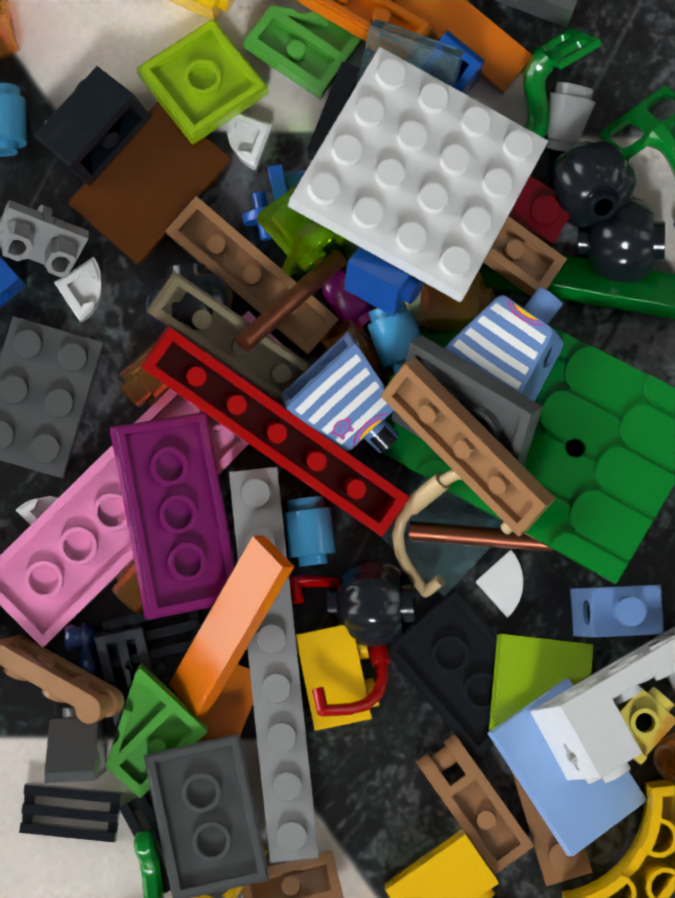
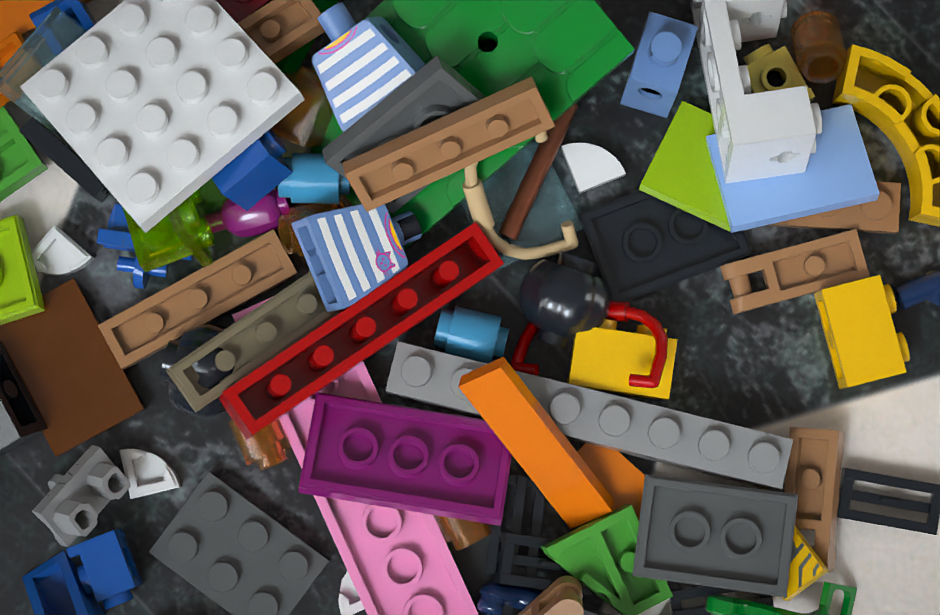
camera: 70 degrees left, 0 degrees up
(291, 300) = (239, 267): copper bar -> none

